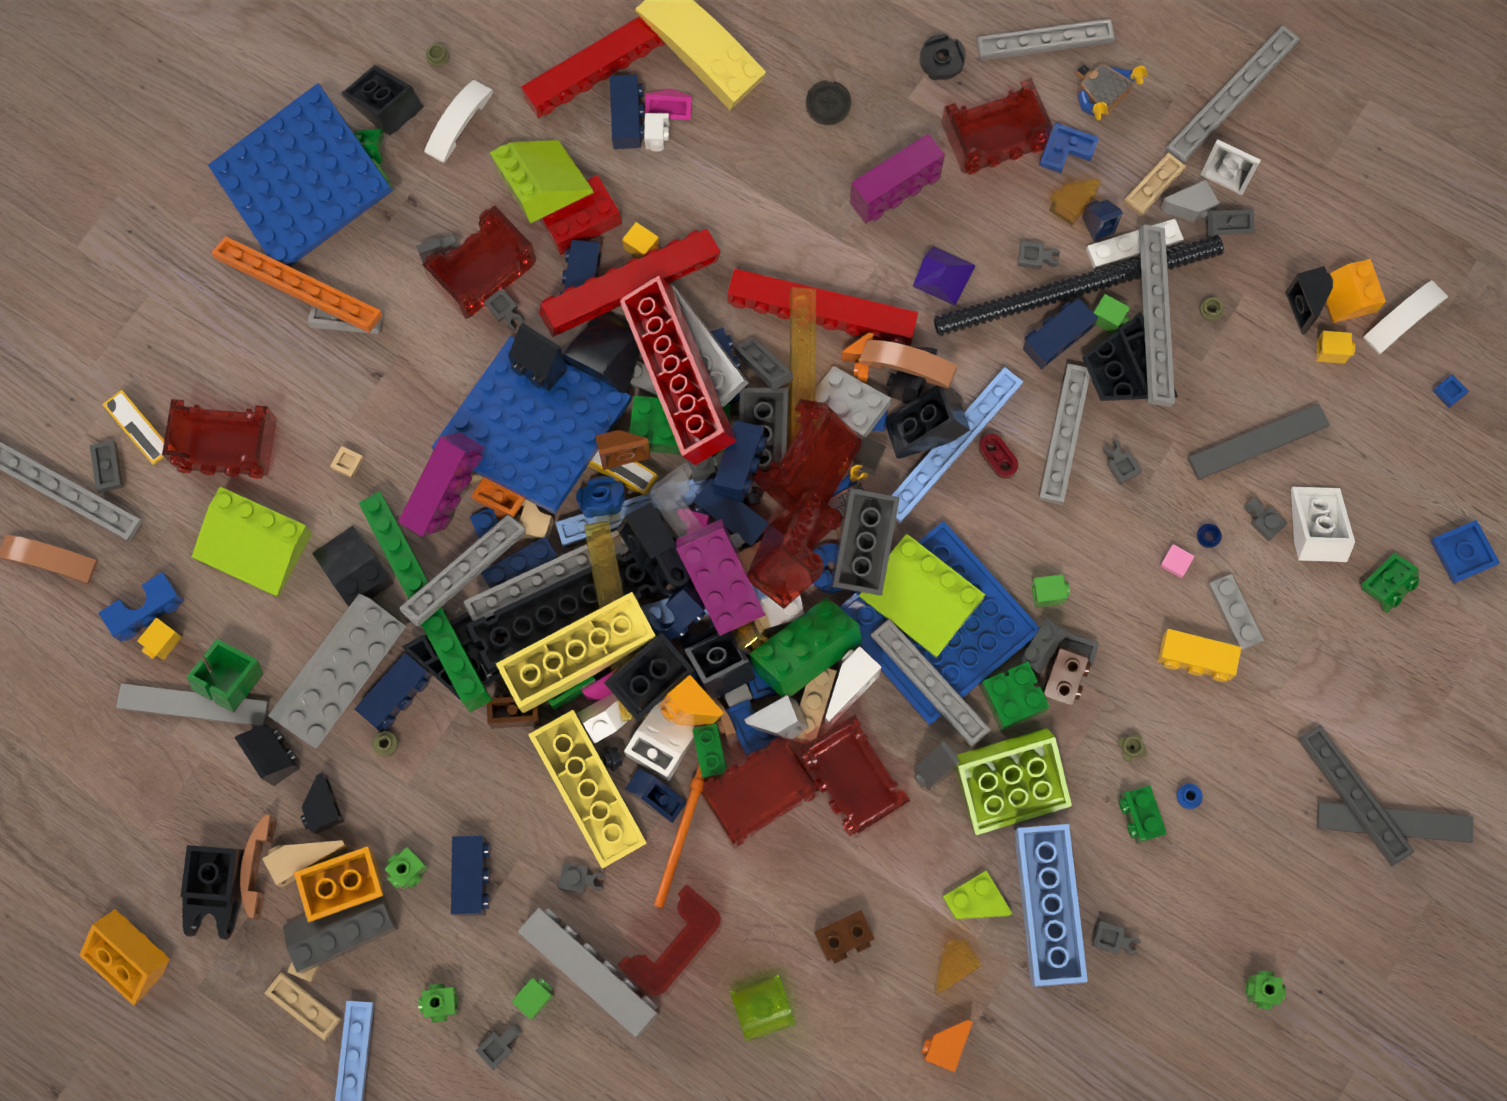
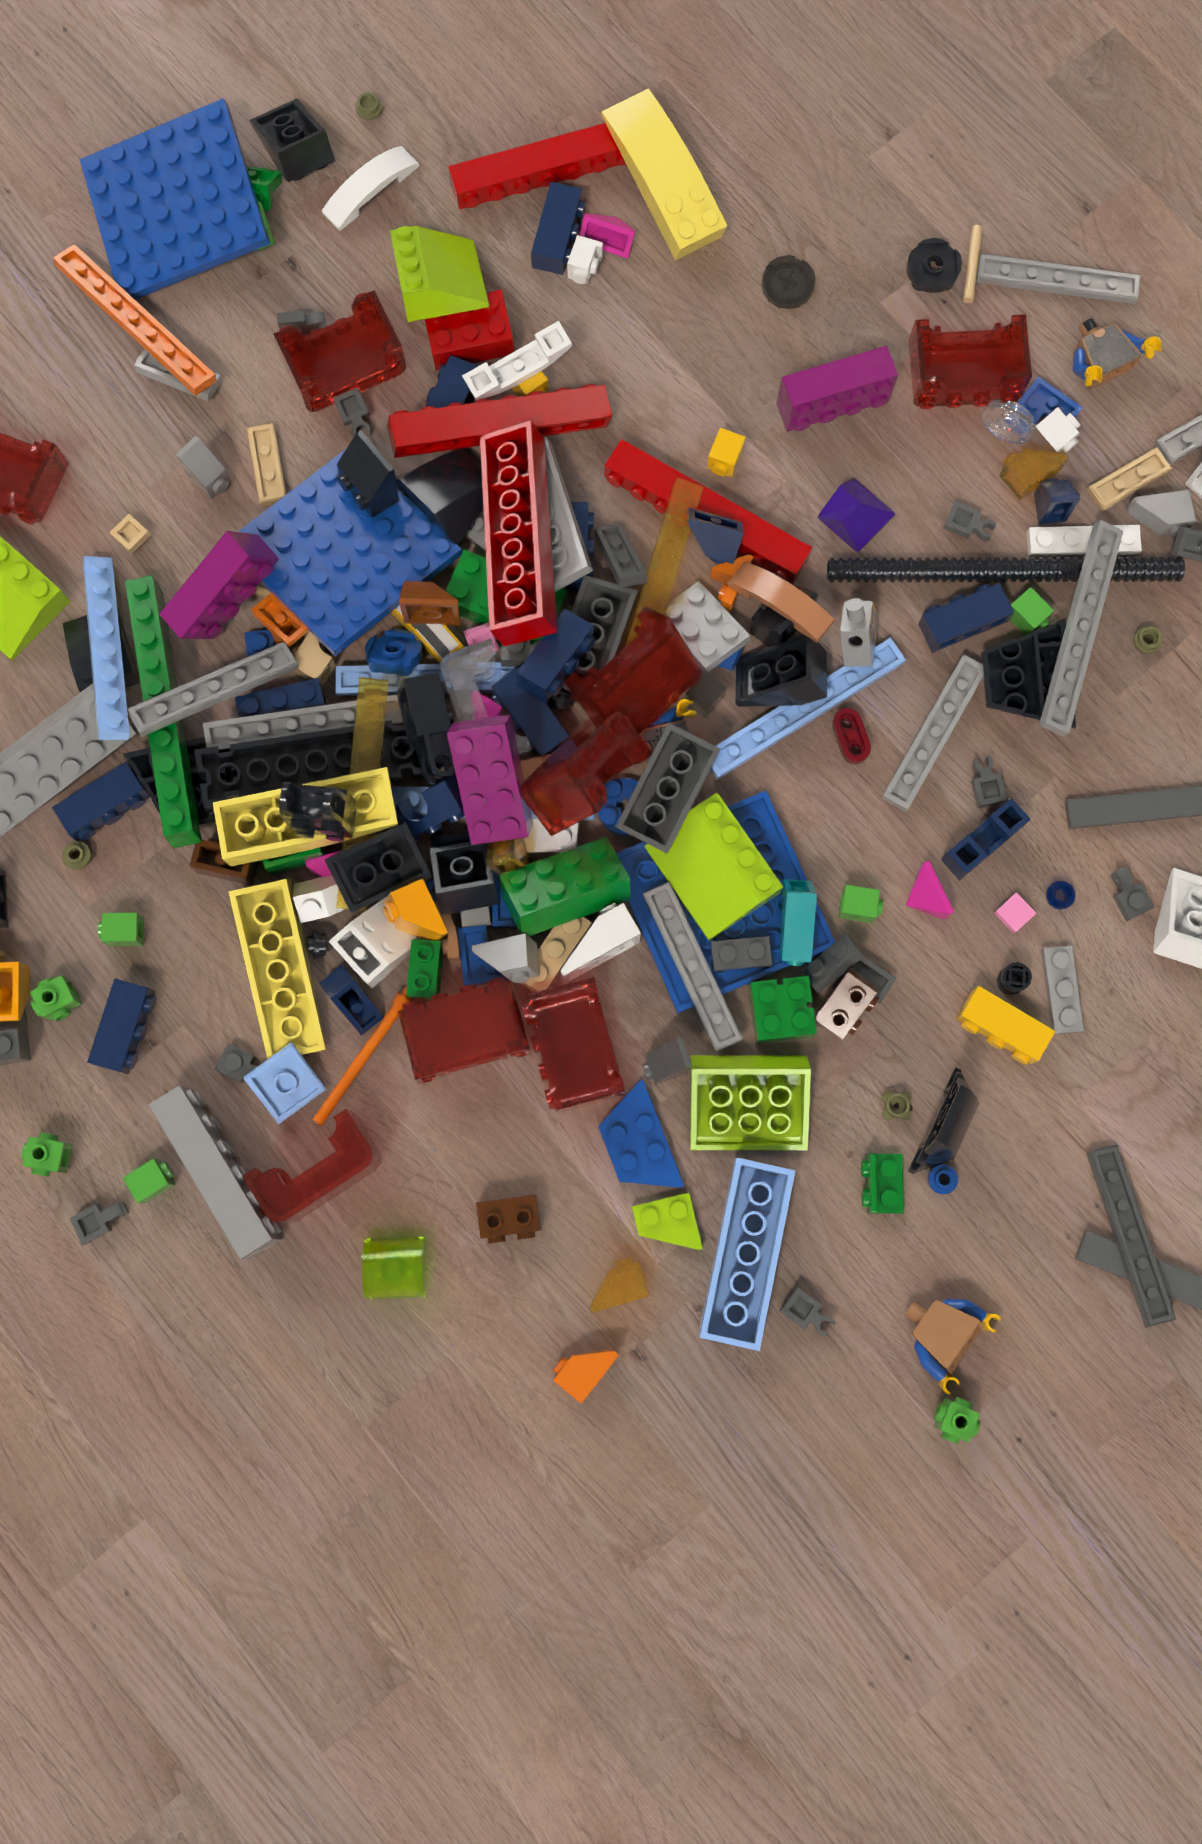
camera: 15 degrees right, 5 degrees up
(361, 563) = (105, 649): none -> light blue plate
(394, 391) = (203, 468): none -> light grey slope
(443, 794) = (121, 929): none -> bright green brick
(444, 372) = (266, 463): none -> tan tile
(591, 644) = (318, 811): none -> black brick
(621, 881) = (284, 1083): none -> light blue tile
(632, 232) = (520, 365): none -> white slope
(668, 463) = (480, 634): none -> bright pink tile
(822, 255) = (725, 453): none -> yellow brick
(839, 325) = (716, 535): none -> dark blue slope
(931, 842) = (638, 1142): none -> blue wing
(966, 660) = (741, 954): none -> dark grey plate
(973, 47) = (972, 265): none -> tan bar
(975, 362) = (861, 621): none -> light grey torso
(1005, 619) = (797, 921): none -> teal slope
(1044, 166) = (1008, 421): none -> clear tile
(1087, 161) = (1060, 430): none -> white brick
(1102, 566) = (928, 894): none -> dark pink slope
(1134, 508) = (985, 839): none -> dark blue arch
(1181, 750) = (949, 1125): none -> black wedge
(1190, 618) = (1010, 983): none -> black wheel
(1234, 922) = (946, 1334): none -> medium nougat torso

